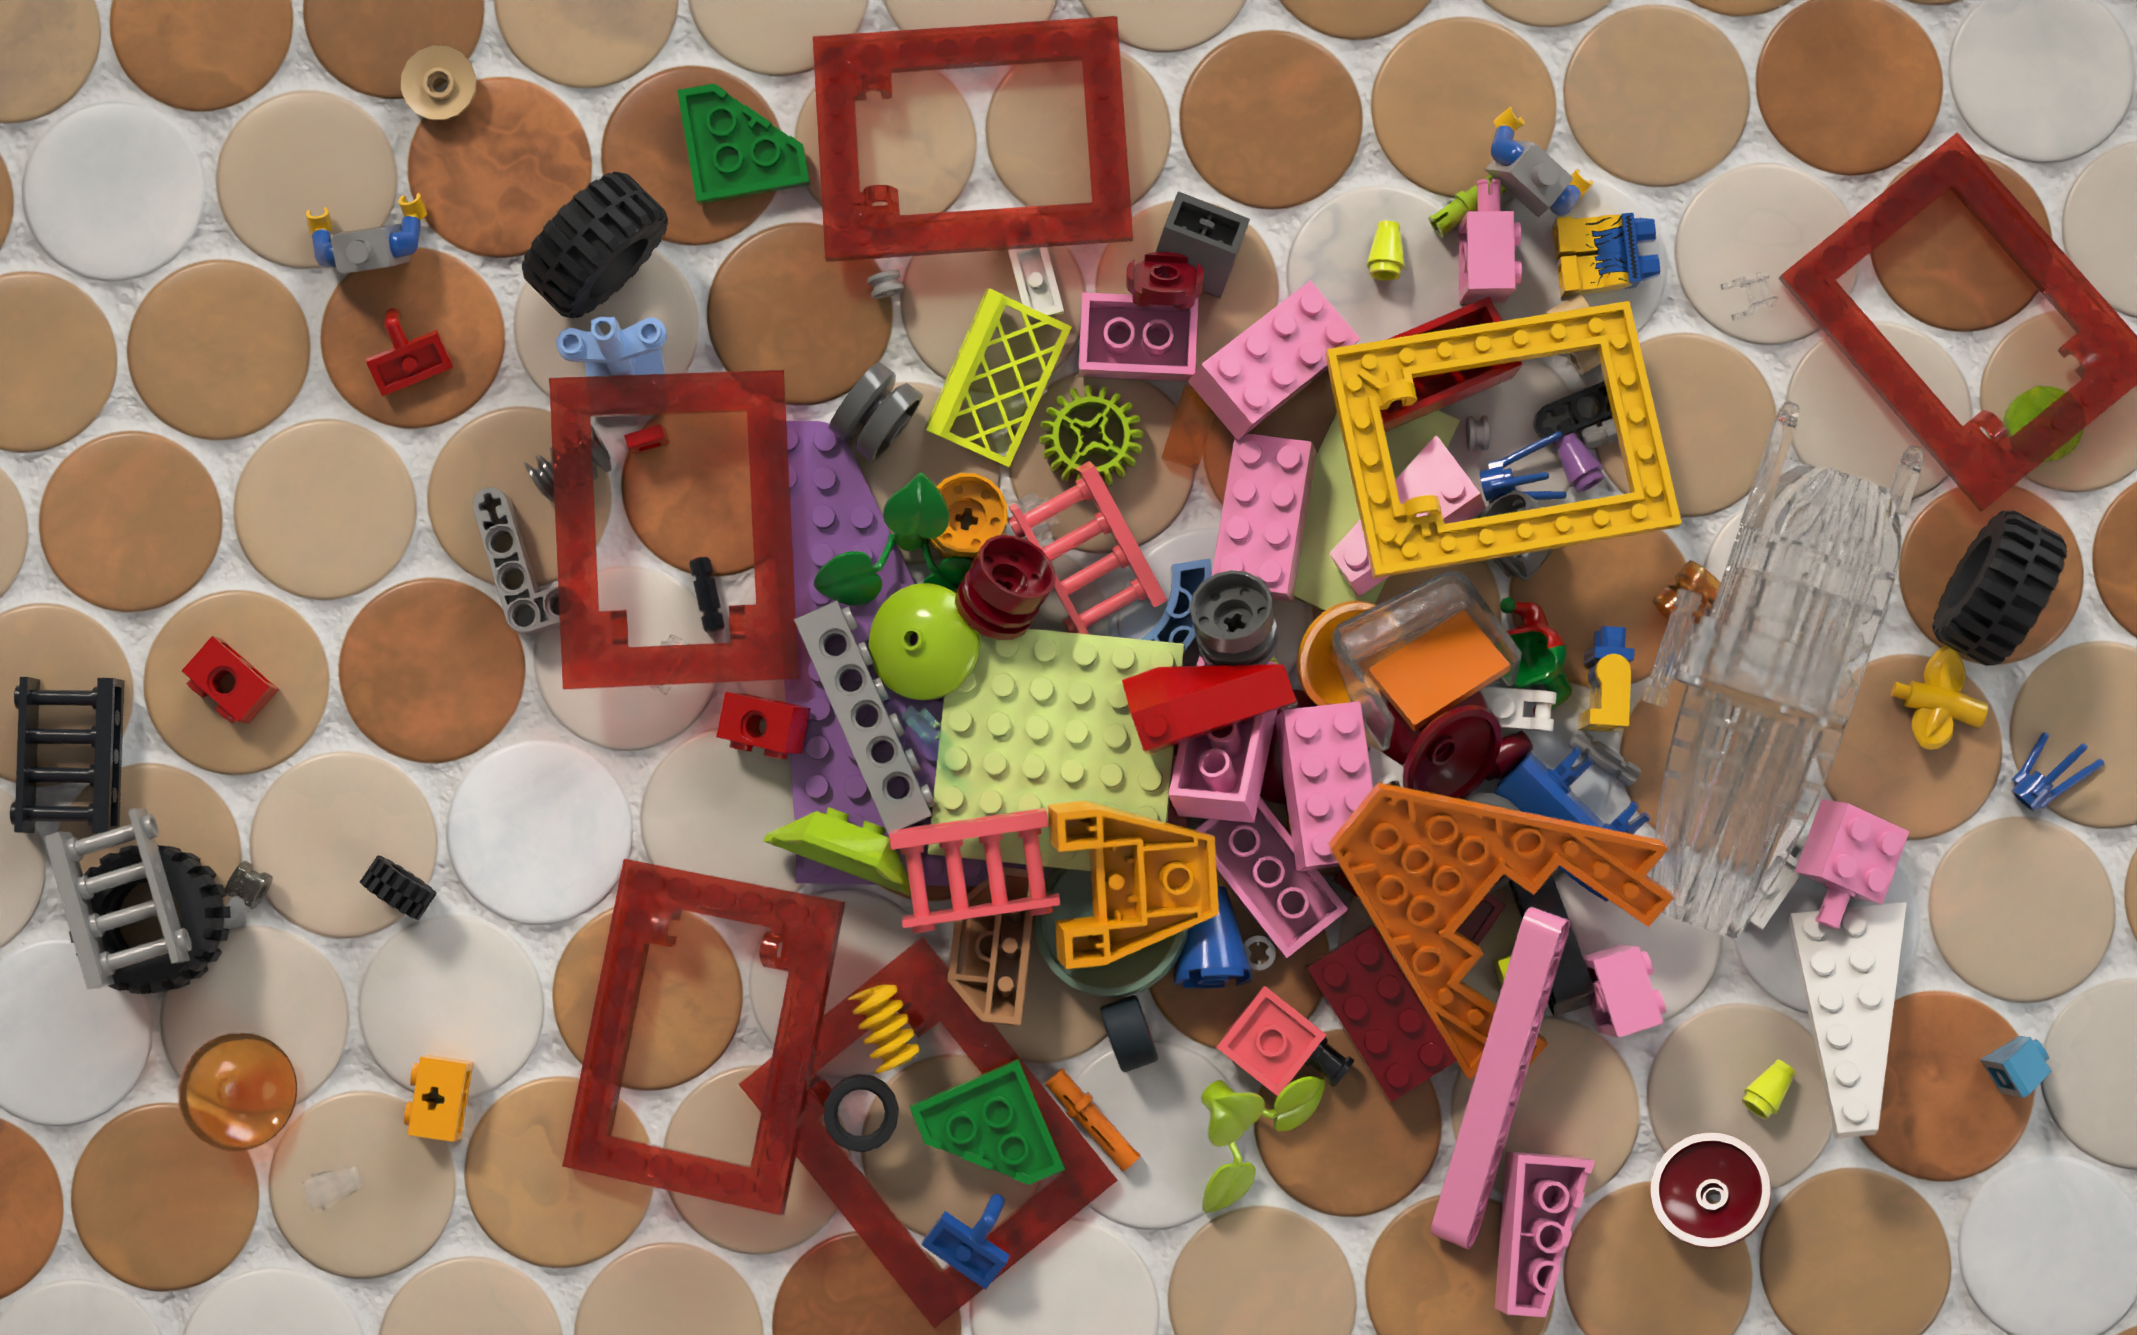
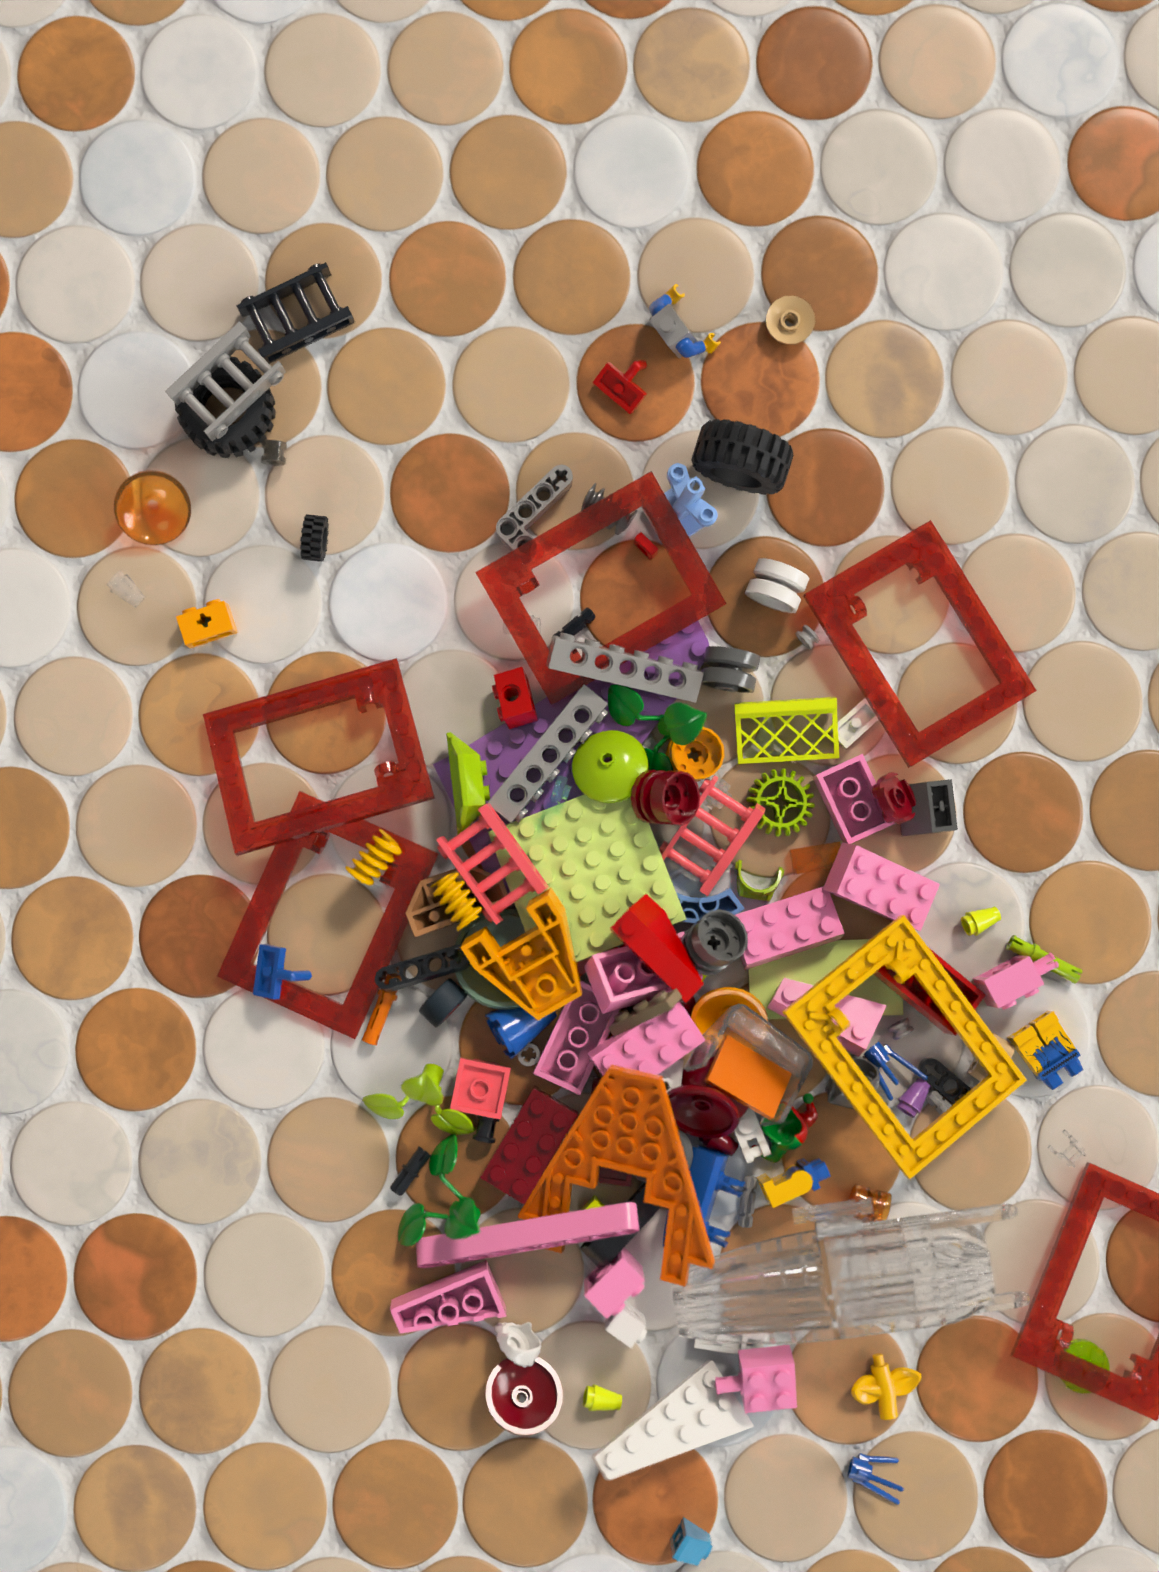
camera: 60 degrees right, 0 degrees up
(251, 687) = (384, 396): red brick -> none
(735, 148) = (842, 510): green plate -> none
(794, 289) = (777, 585): none -> white wheel
(848, 1140) = (298, 868): black tyre -> none
(870, 484) = (686, 688): none -> light grey brick
(991, 1125) = (349, 949): green plate -> none
(999, 941) = (456, 899): none -> yellow piece
(1076, 1038) = (423, 965): none -> black beam
(1189, 543) = (749, 892): none -> lime helmet
(1279, 763) = (644, 1011): none -> dark tan plate
(1334, 1195) = (410, 1171): none -> black axle
(1429, 1149) = (463, 1213): none -> green plant
(1531, 172) = (1073, 982): light grey torso -> none
(1638, 1163) = (518, 1342): none -> white hair
(1688, 1003) = (627, 1325): none -> white brick
(1999, 588) = (970, 1391): black tyre -> none

